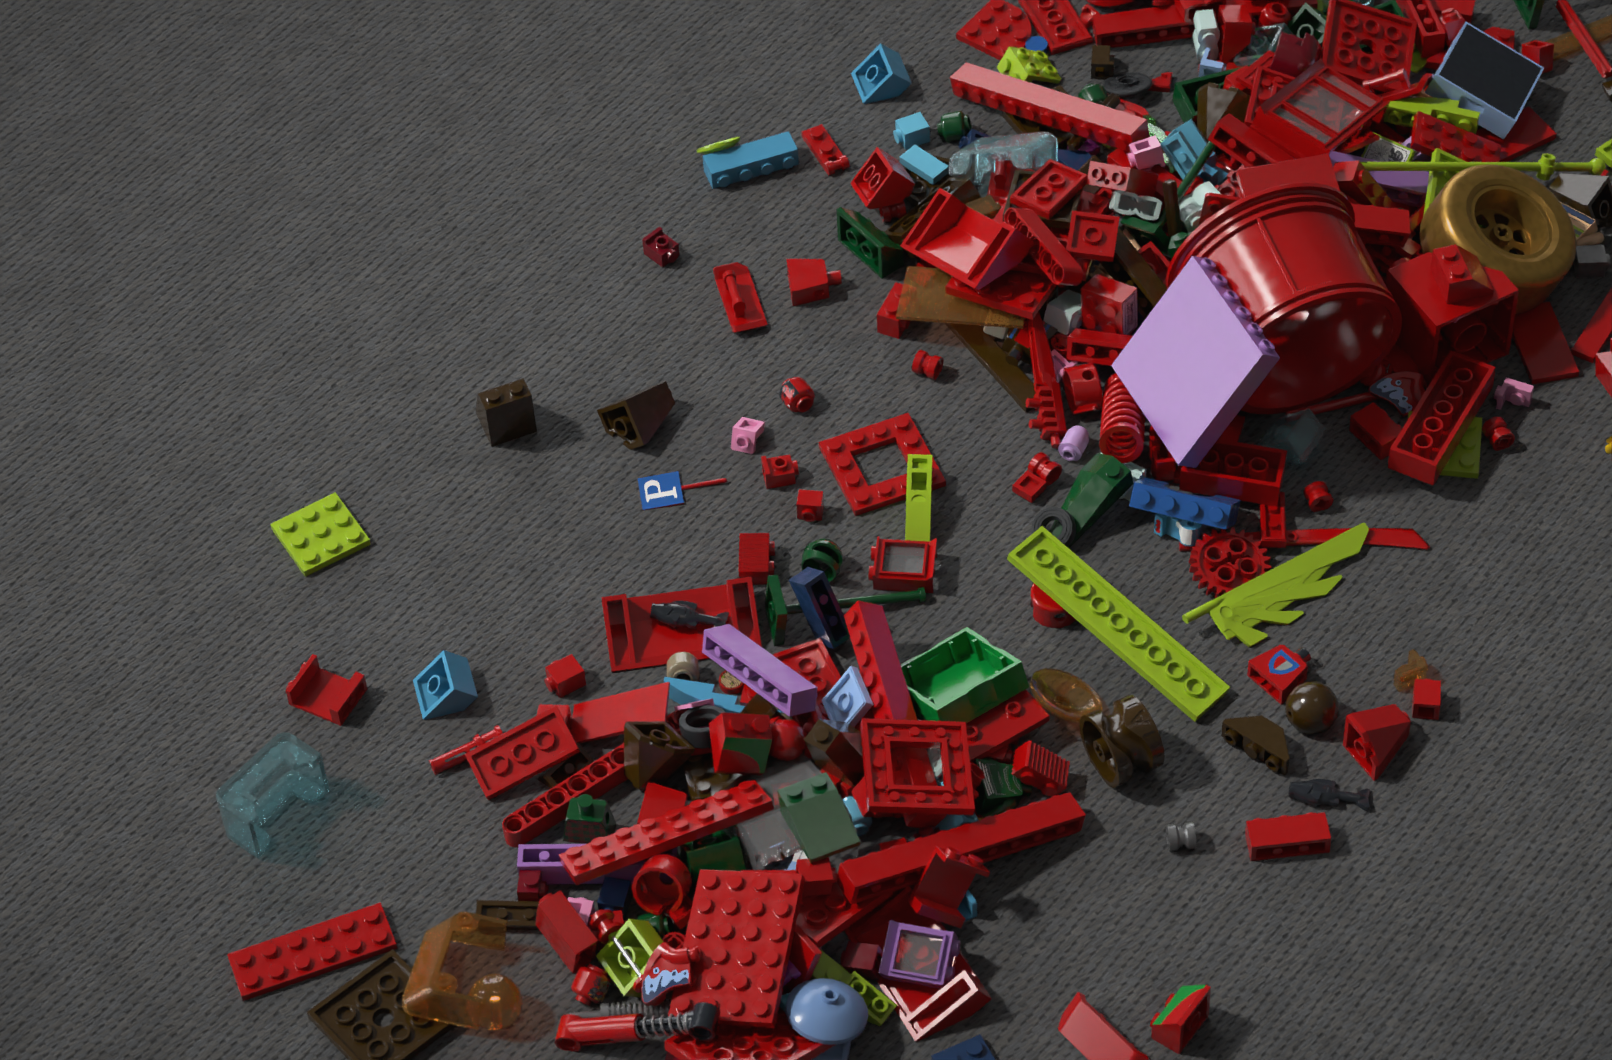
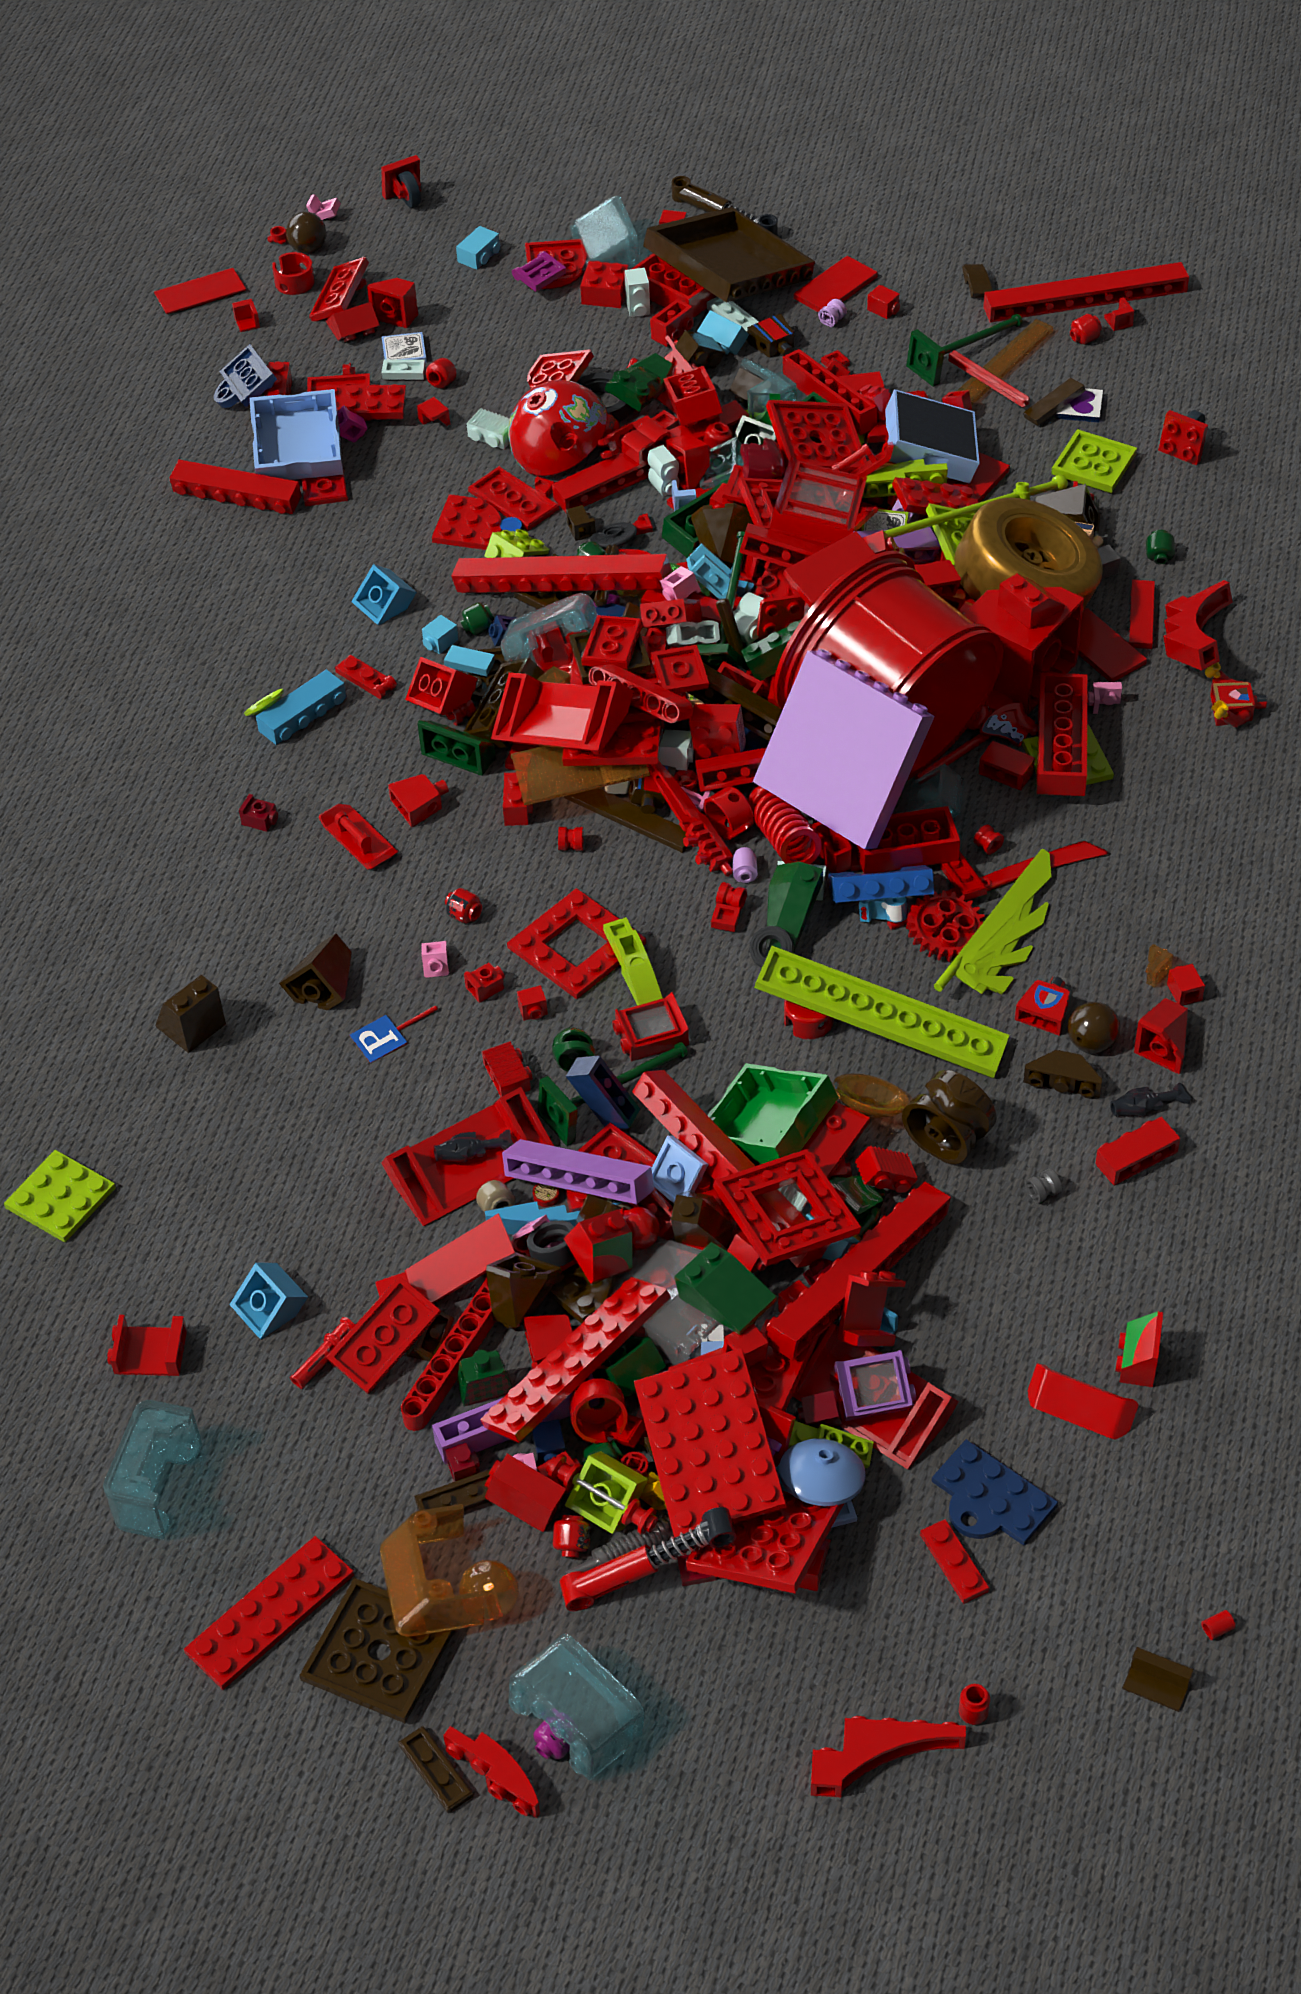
camera: 25 degrees left, 0 degrees up
(564, 676) = (382, 1245): red brick -> none
(667, 970) = (654, 1492): red arm -> none
(1497, 432) = (1110, 733): red wheel -> none

